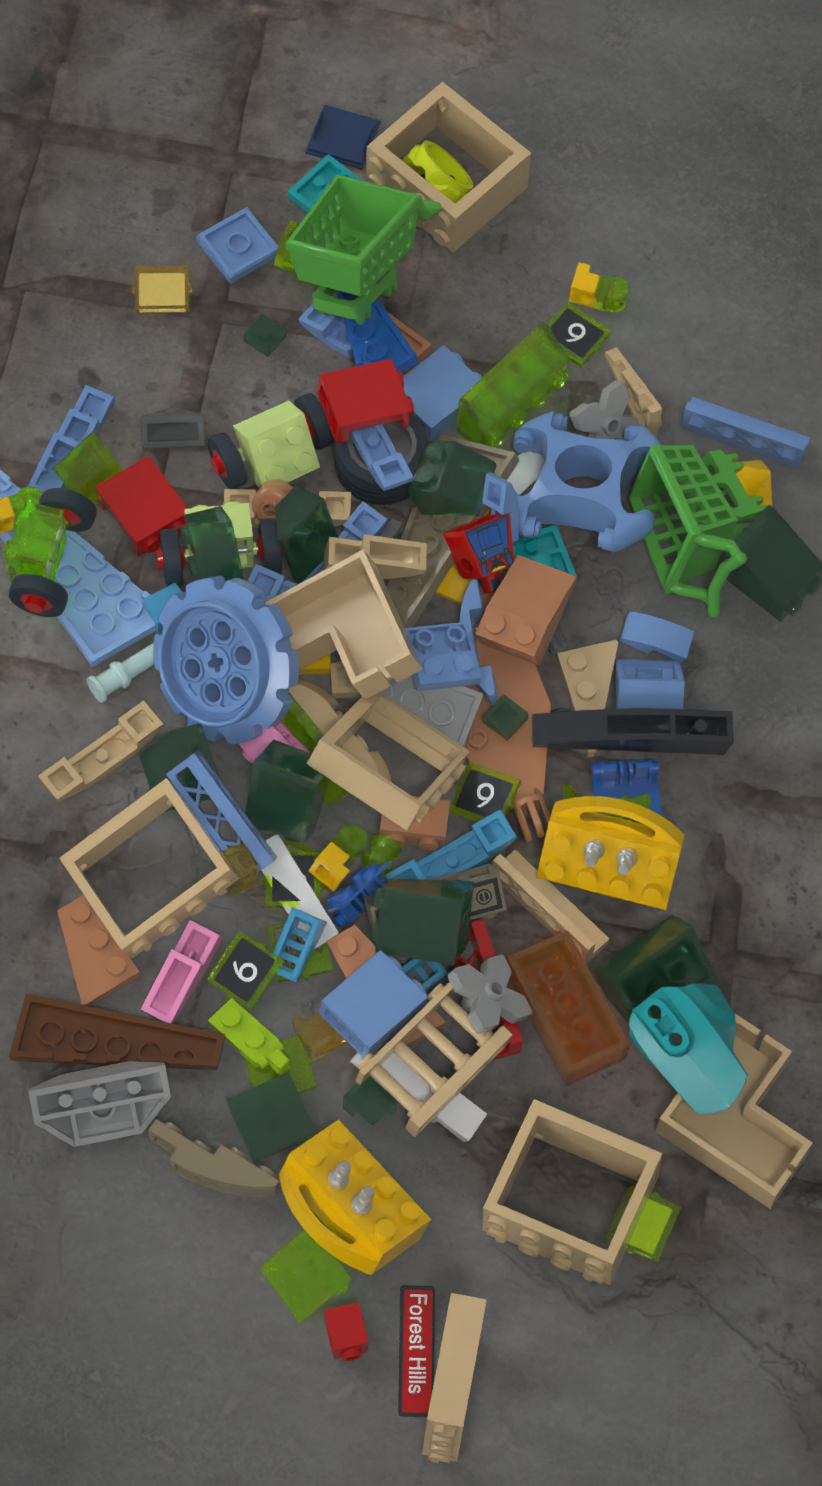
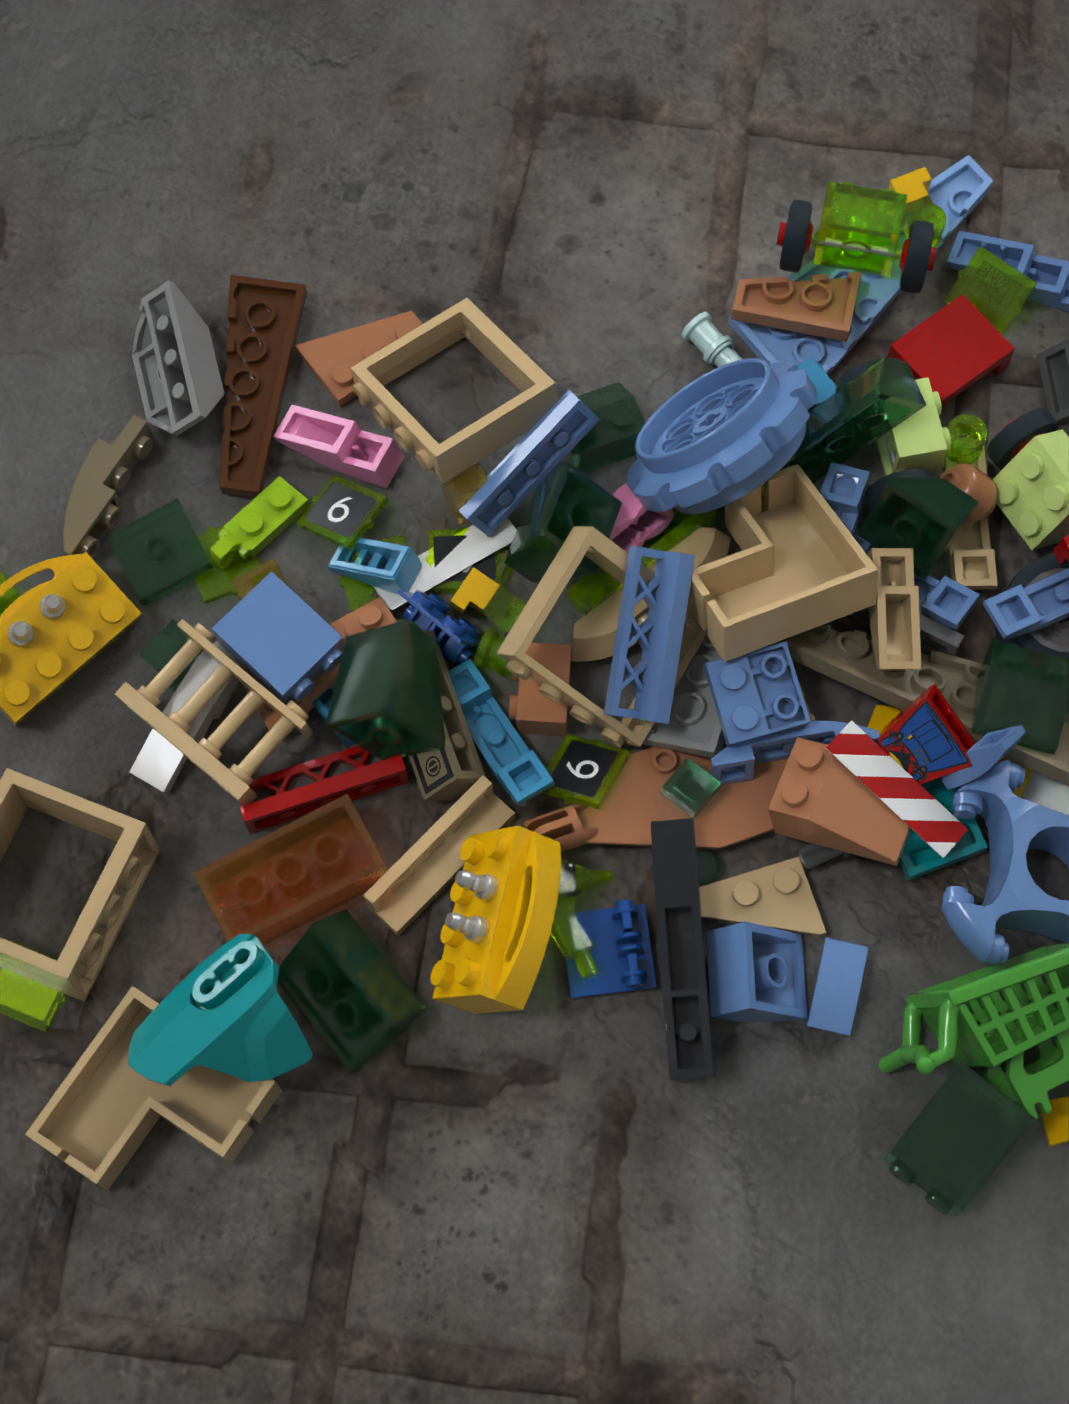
camera: 95 degrees right, 5 degrees up
(92, 603) = (807, 306): none -> nougat wing
(103, 755) = (608, 339): tan slope -> none
(225, 487) = (970, 448): none -> clear neon green wheel
(397, 717) = (662, 634): none -> medium blue fence
(486, 994) = (287, 793): light grey plant -> none
(519, 570) = (897, 789): none -> sticker

